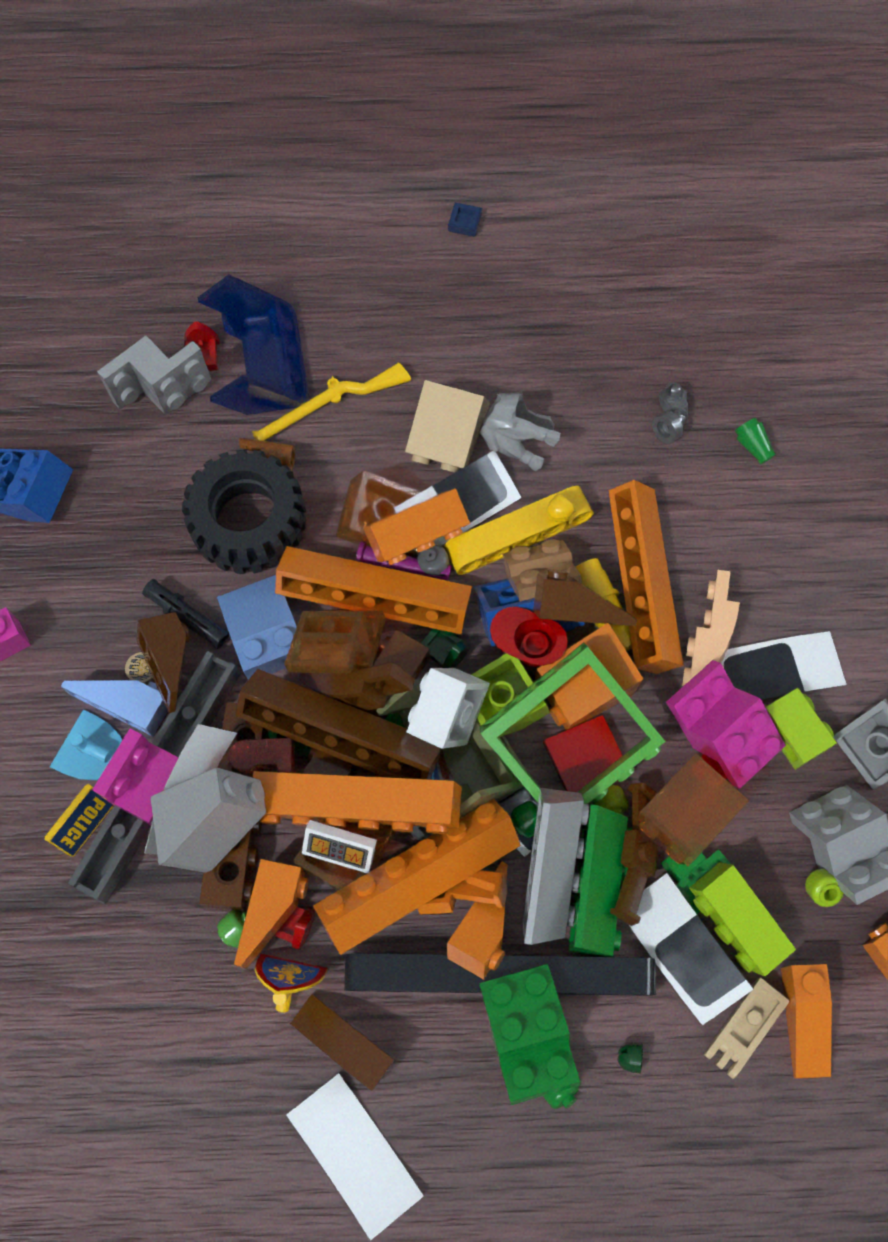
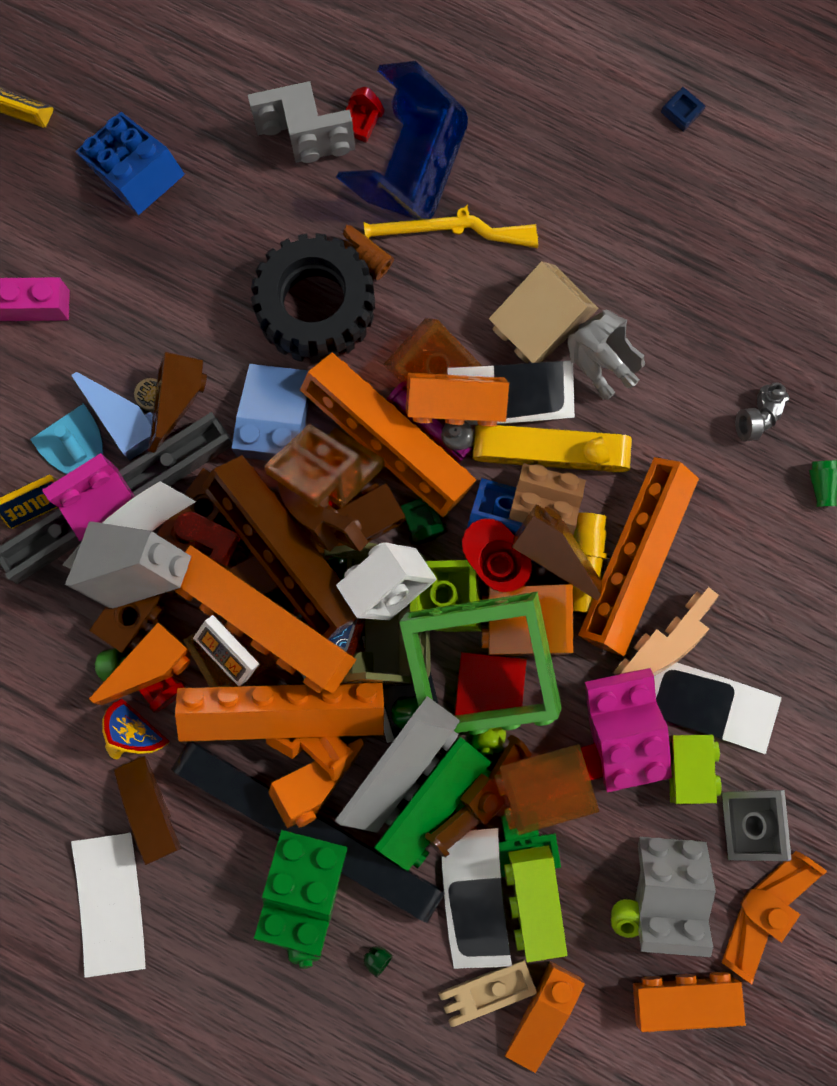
camera: 30 degrees right, 10 degrees up
(157, 593) = (199, 334): black pin -> none

